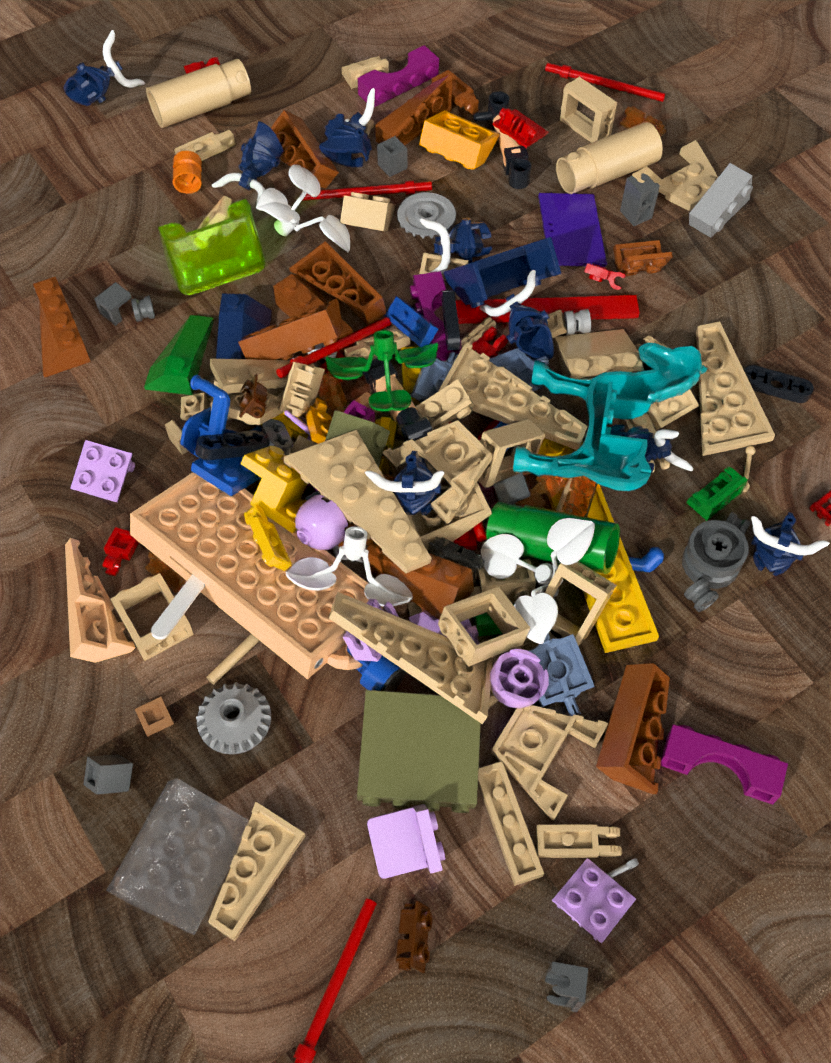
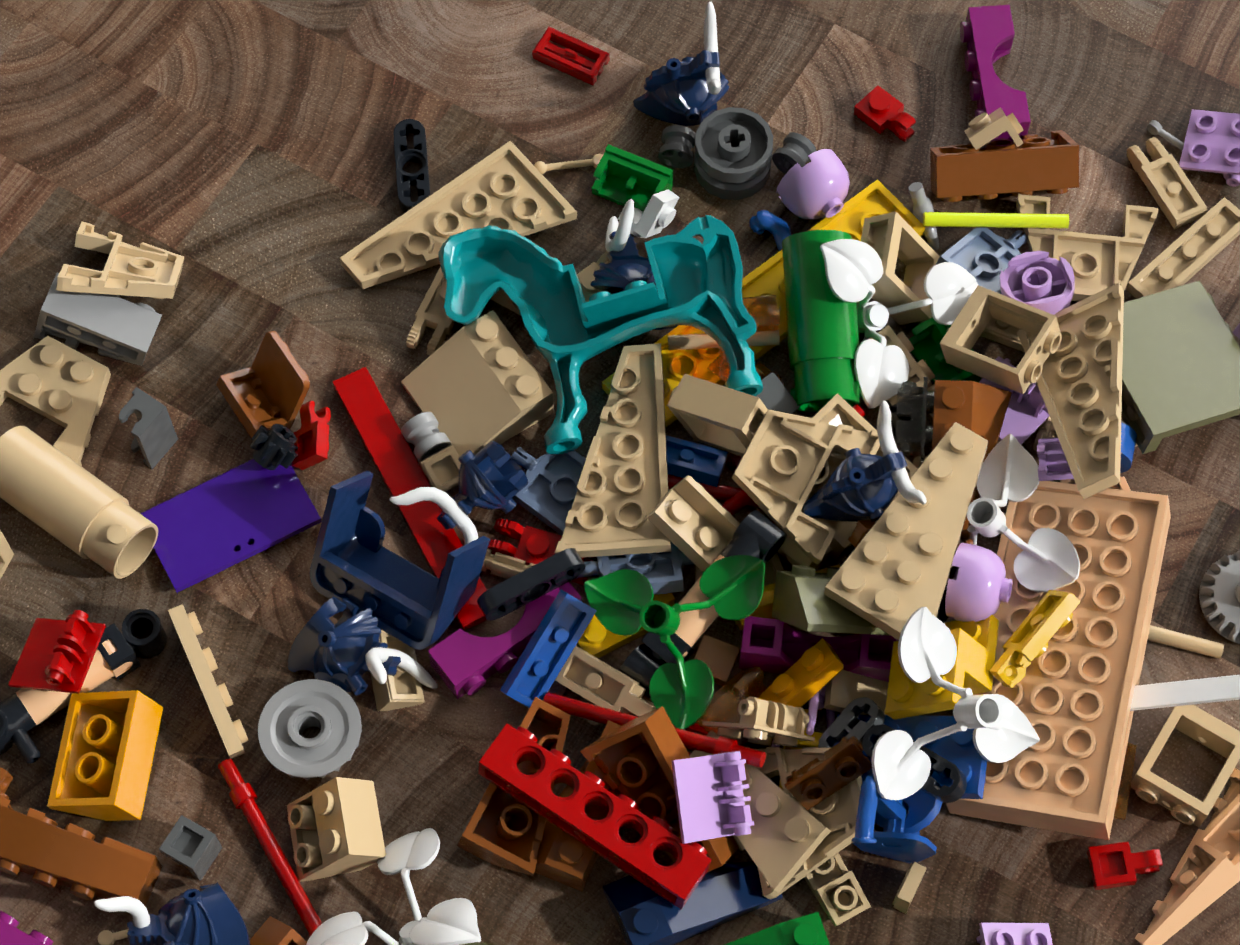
camera: 115 degrees left, 5 degrees up
(226, 417) = (999, 726): none -> white plant
(271, 337) = (711, 797): none -> lavender hinge
(296, 290) = (602, 836): none -> red brick
(486, 183) = (203, 664): none -> tan wing
(590, 693) = (997, 220): none -> neon yellow bar
(608, 253) = (274, 446): none -> black gear
(618, 655) = (921, 205): none -> light grey animal
(663, 587) = (816, 187): none -> lavender cylinder
(666, 720) = (987, 127): none -> tan bracket
(684, 487) = (656, 215): none -> white bracket
(718, 672) = (884, 111): none -> red plate
(744, 222) = (128, 269): none -> tan wing

